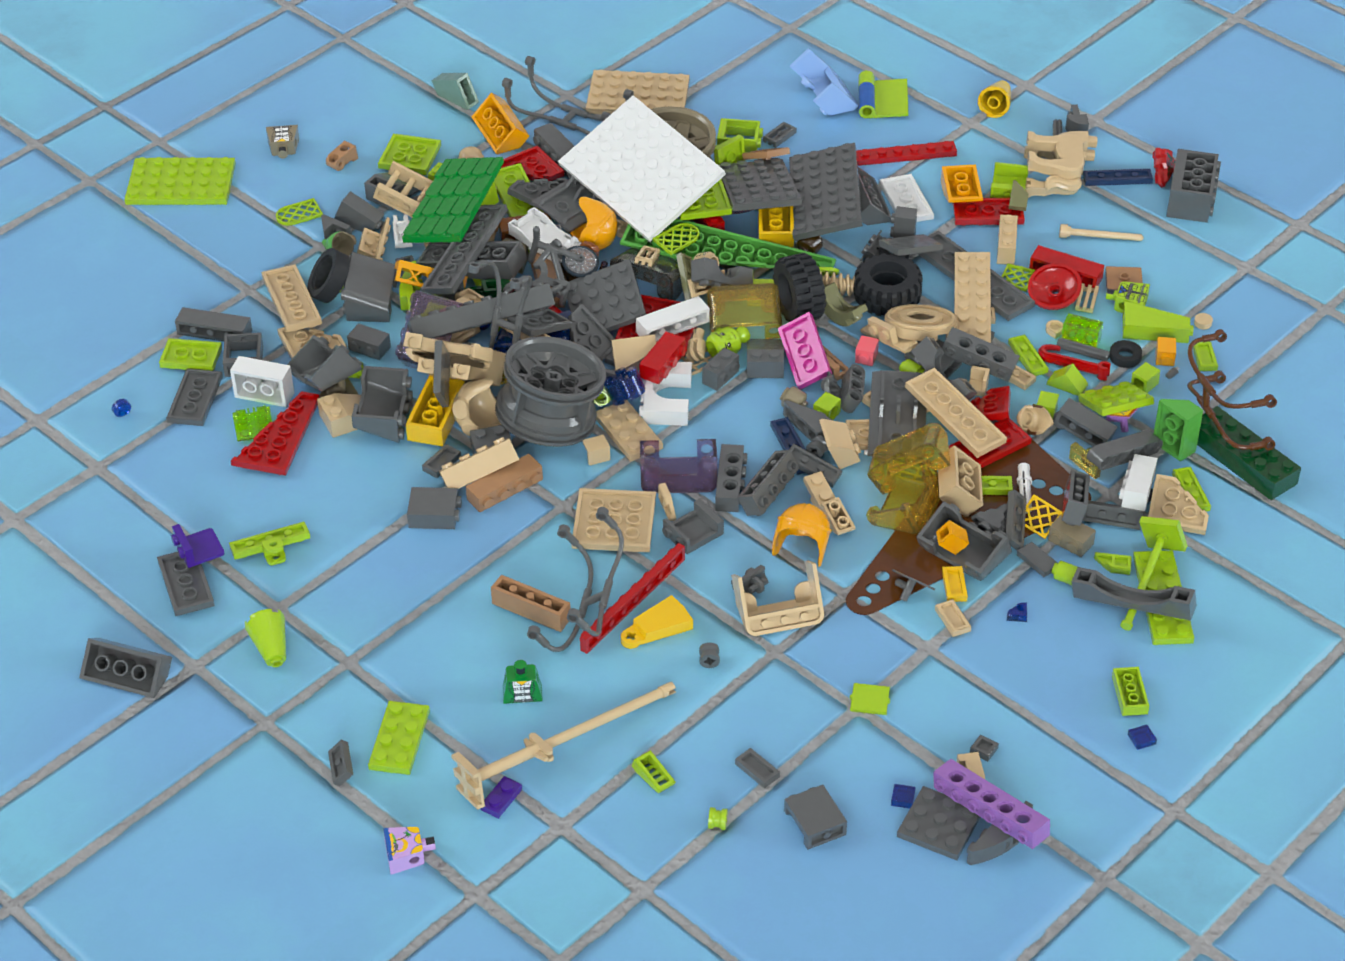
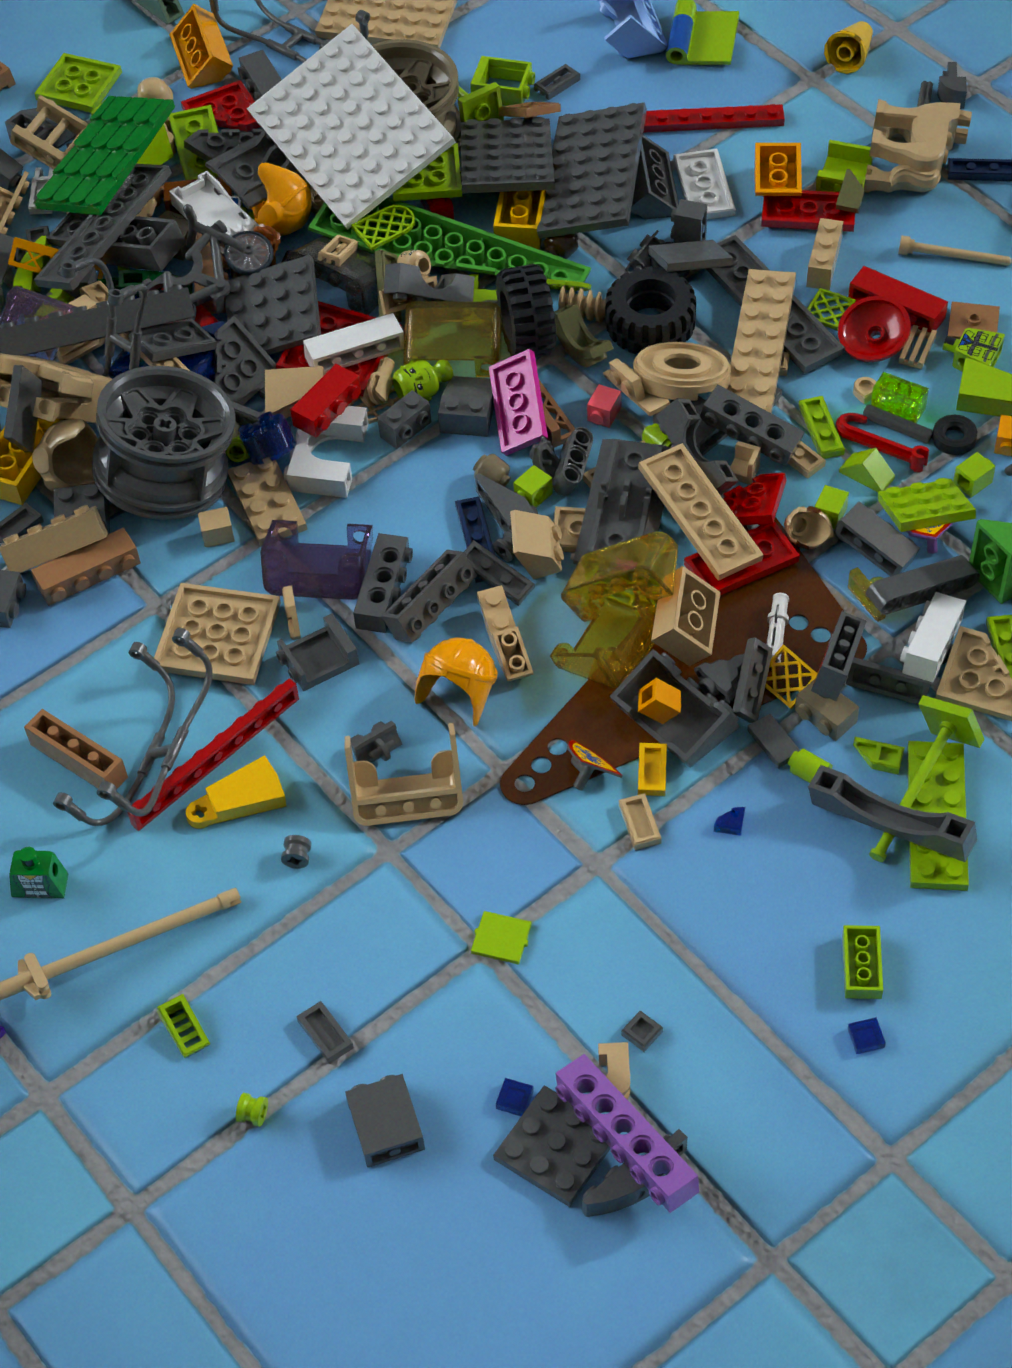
camera: 10 degrees right, 10 degrees up
(996, 485) = (738, 622): lime plate -> none

